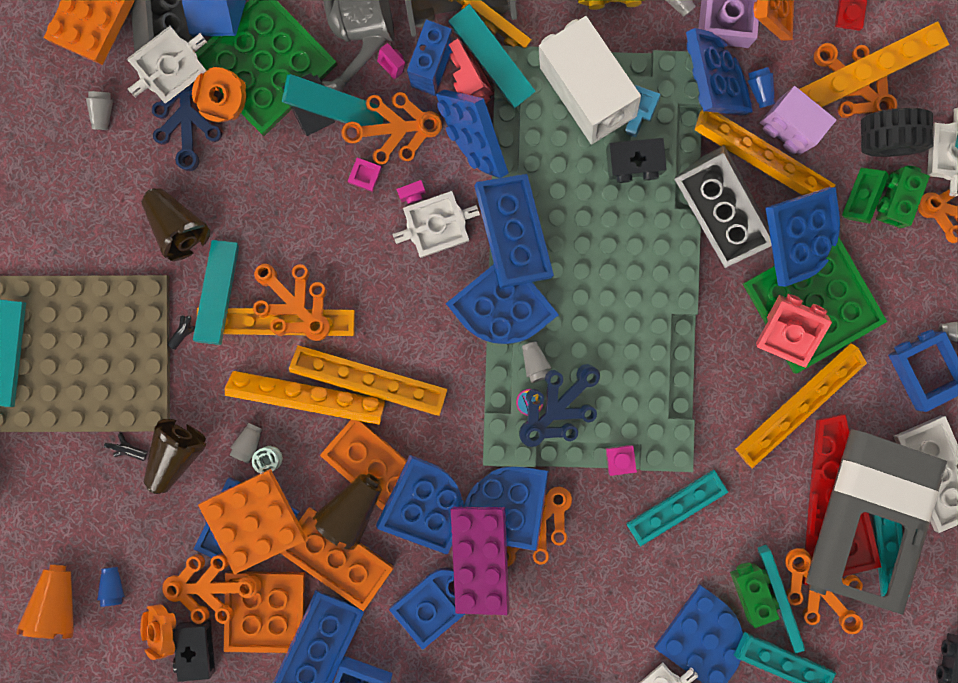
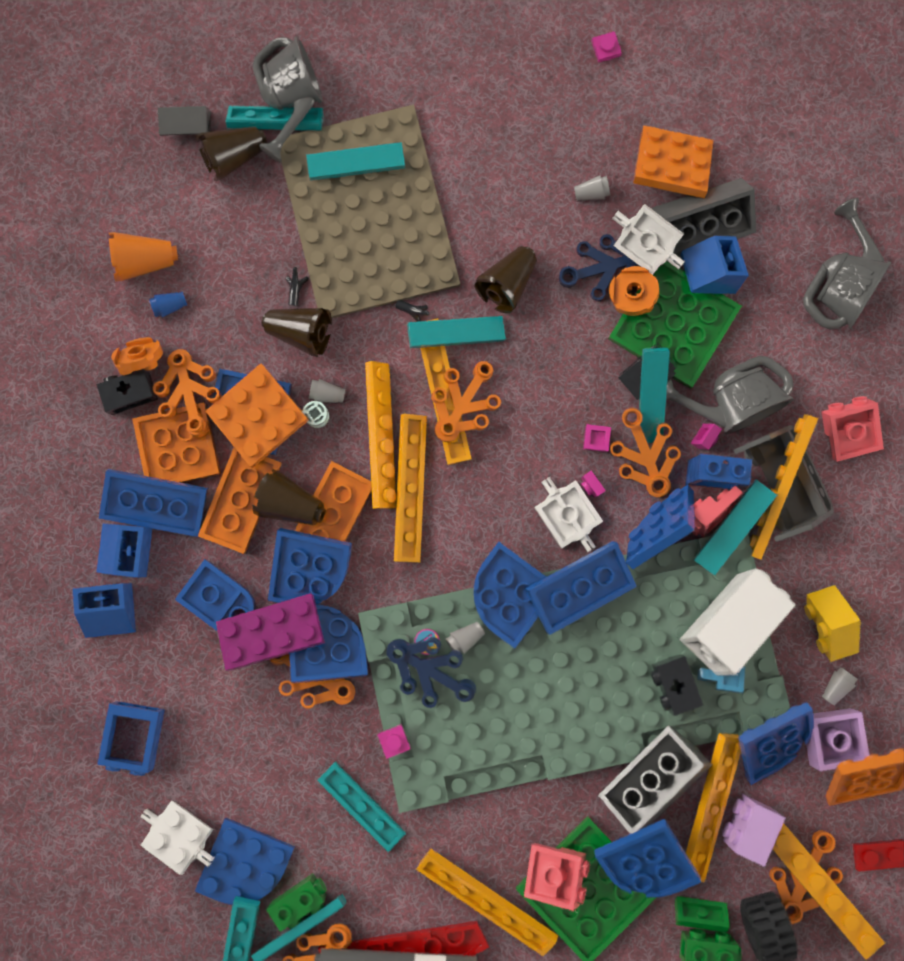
camera: 85 degrees right, 5 degrees down
(762, 86) = (777, 788): blue cone -> none

